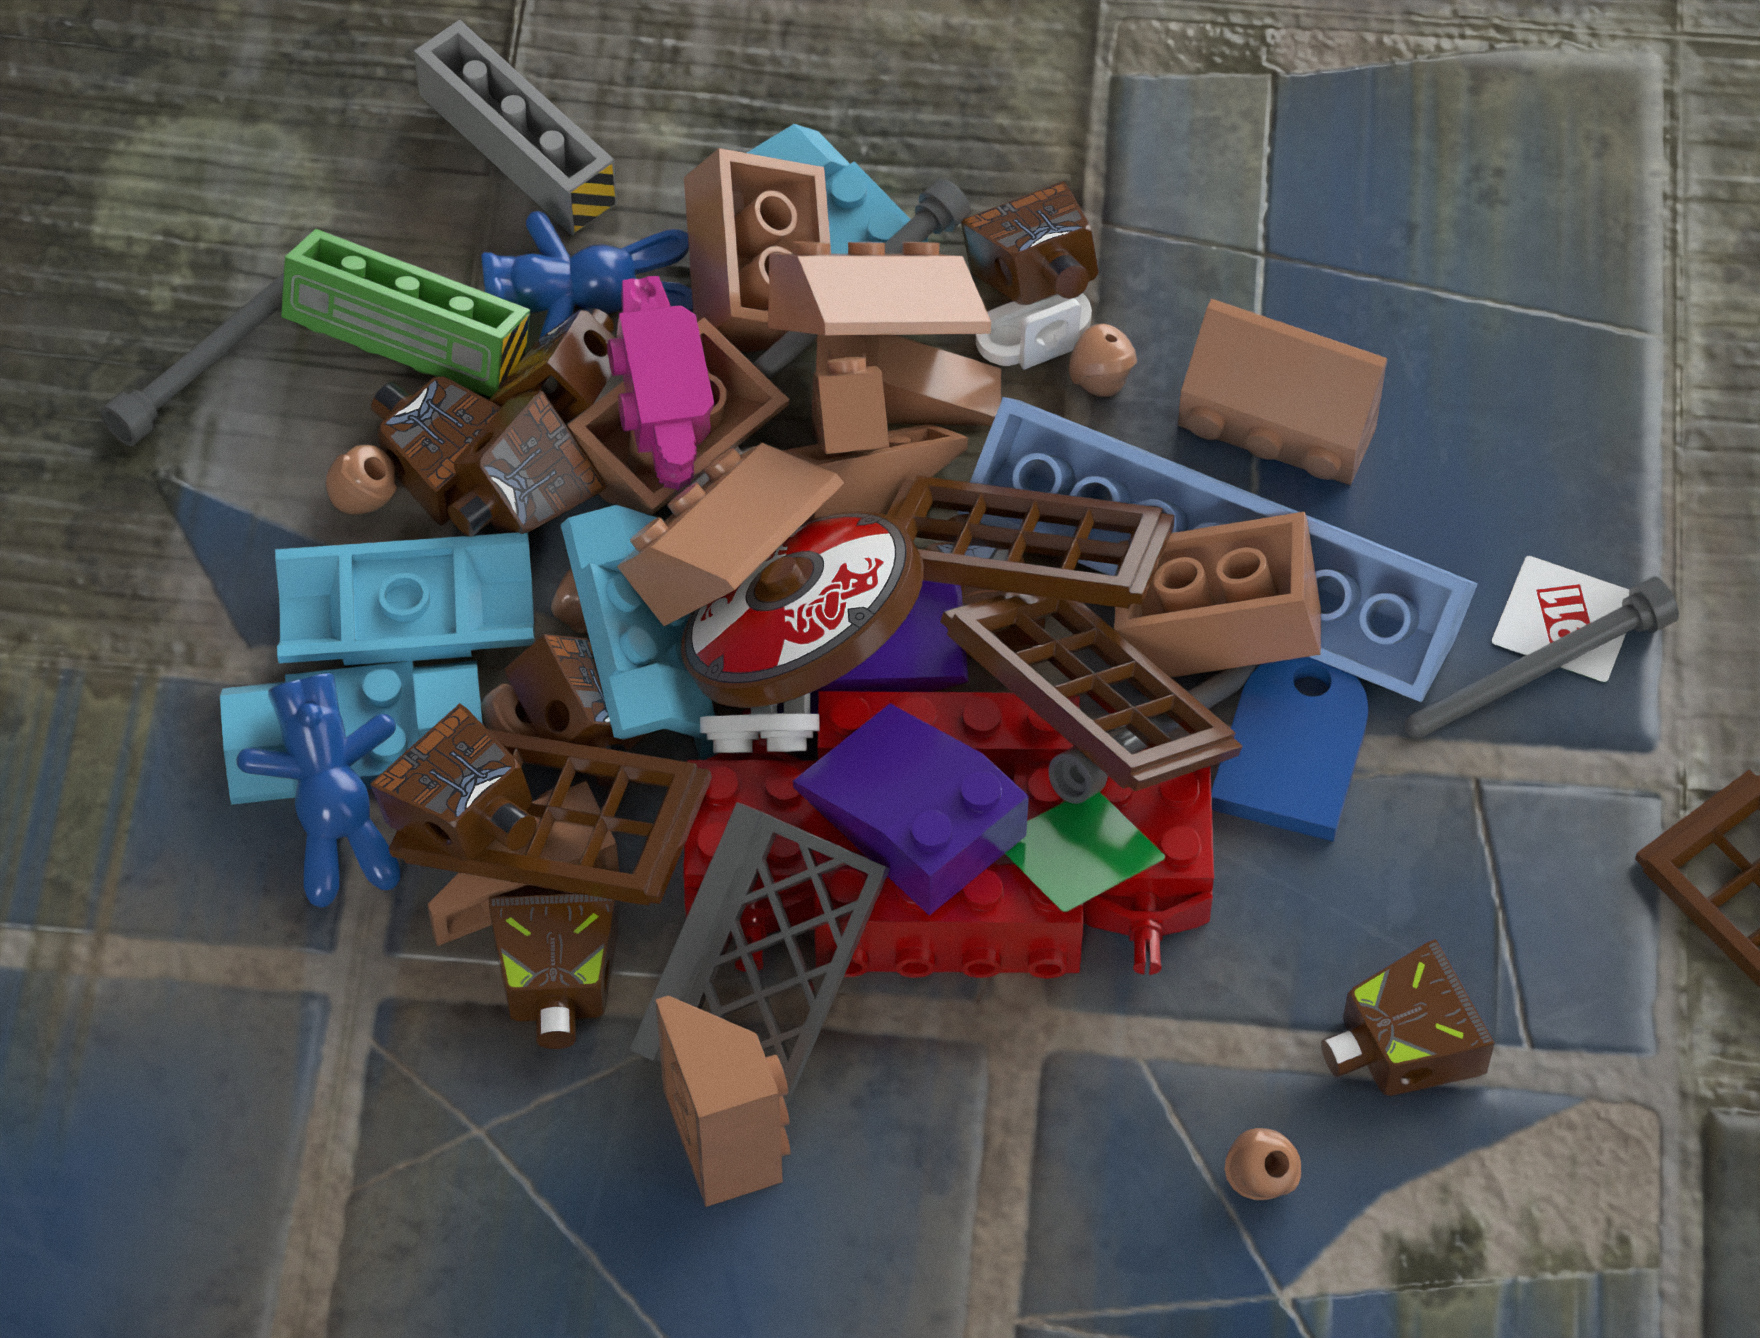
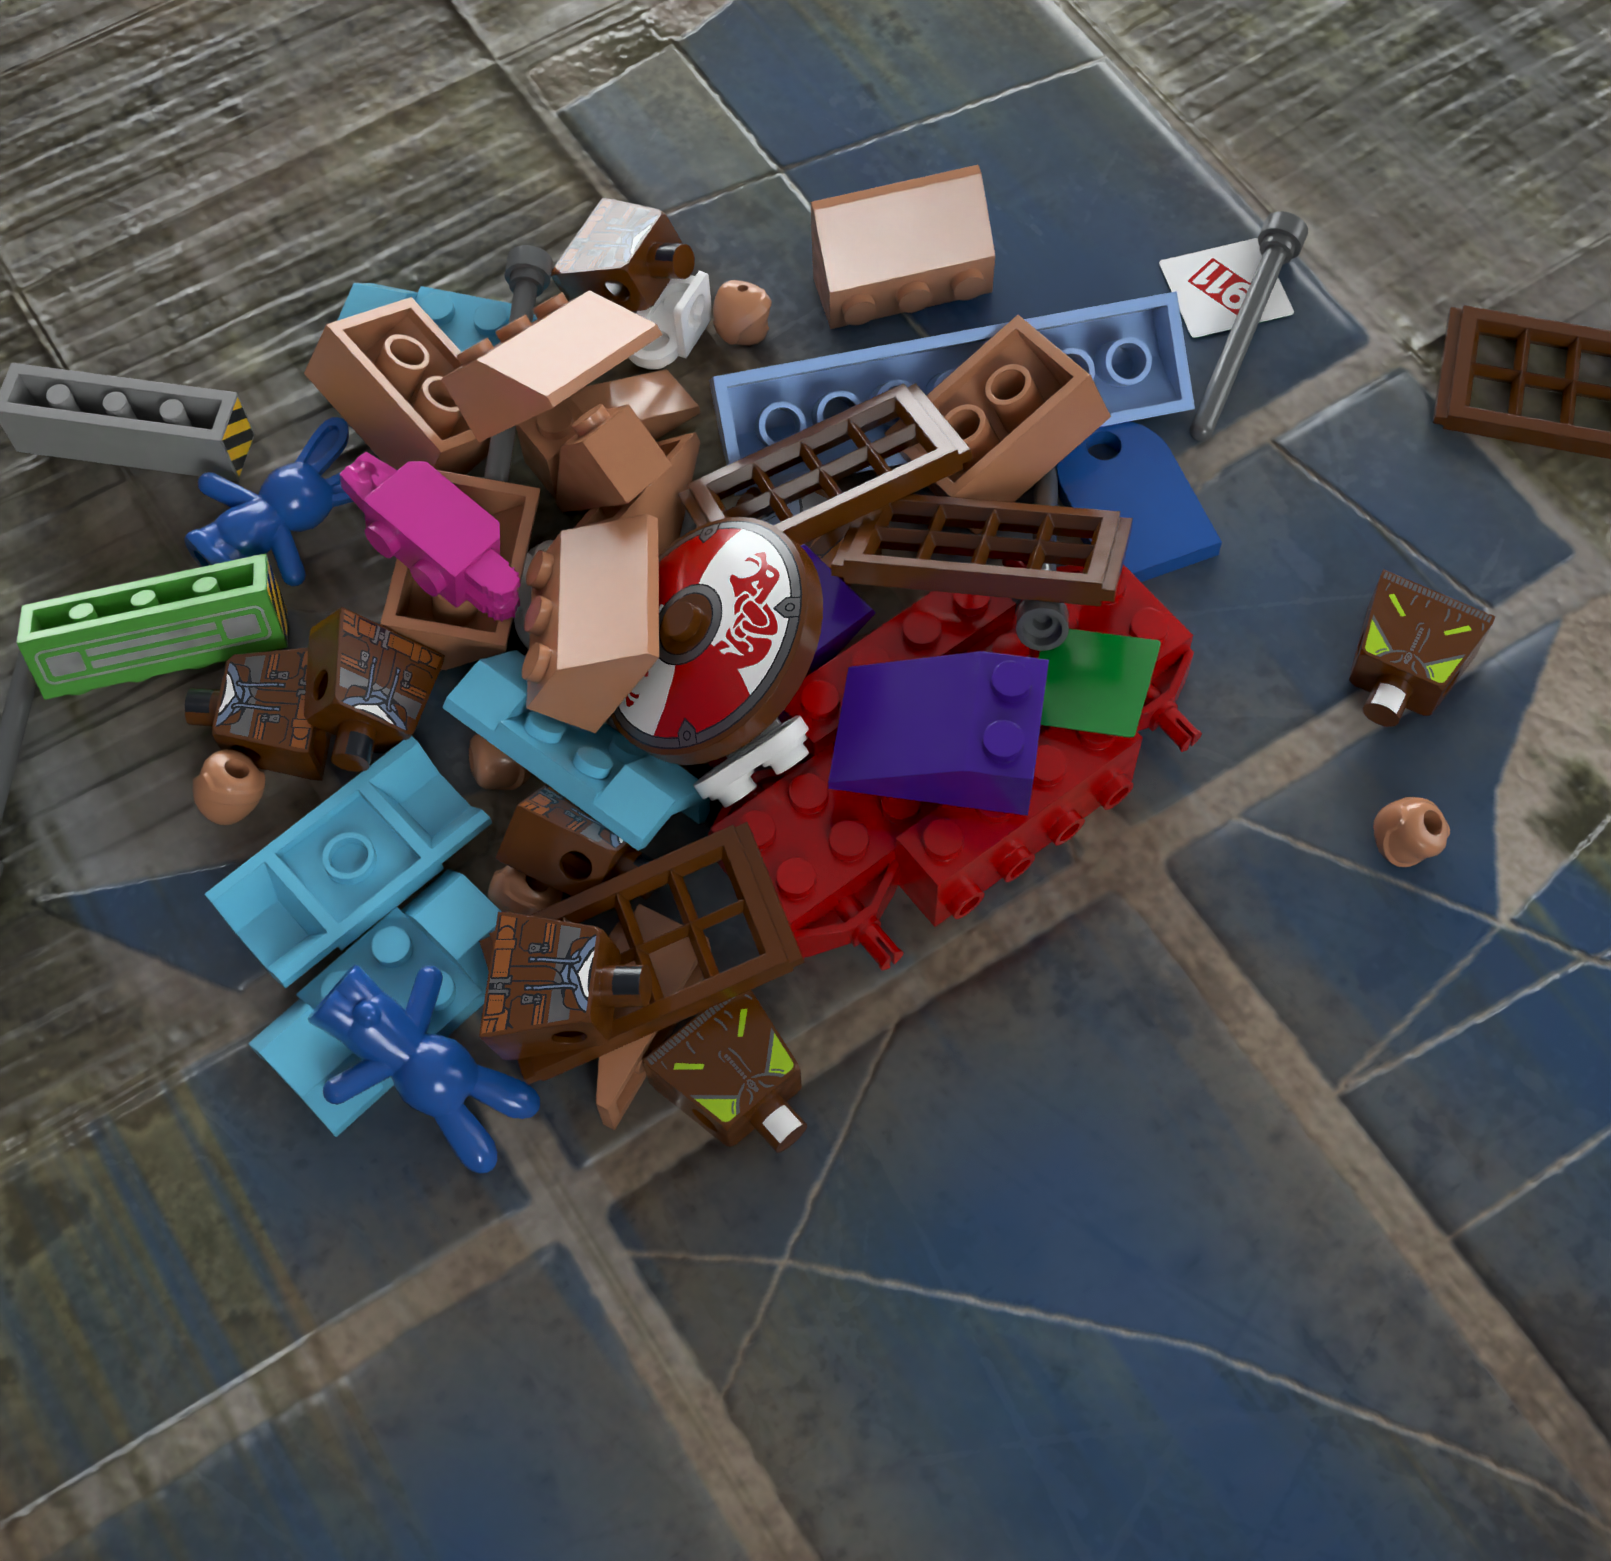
camera: 35 degrees left, 5 degrees up
(574, 356) = (331, 572): reddish brown torso -> none
(717, 918) = (860, 962): dark grey fence -> none
(723, 1100) = (991, 1088): nougat slope -> none

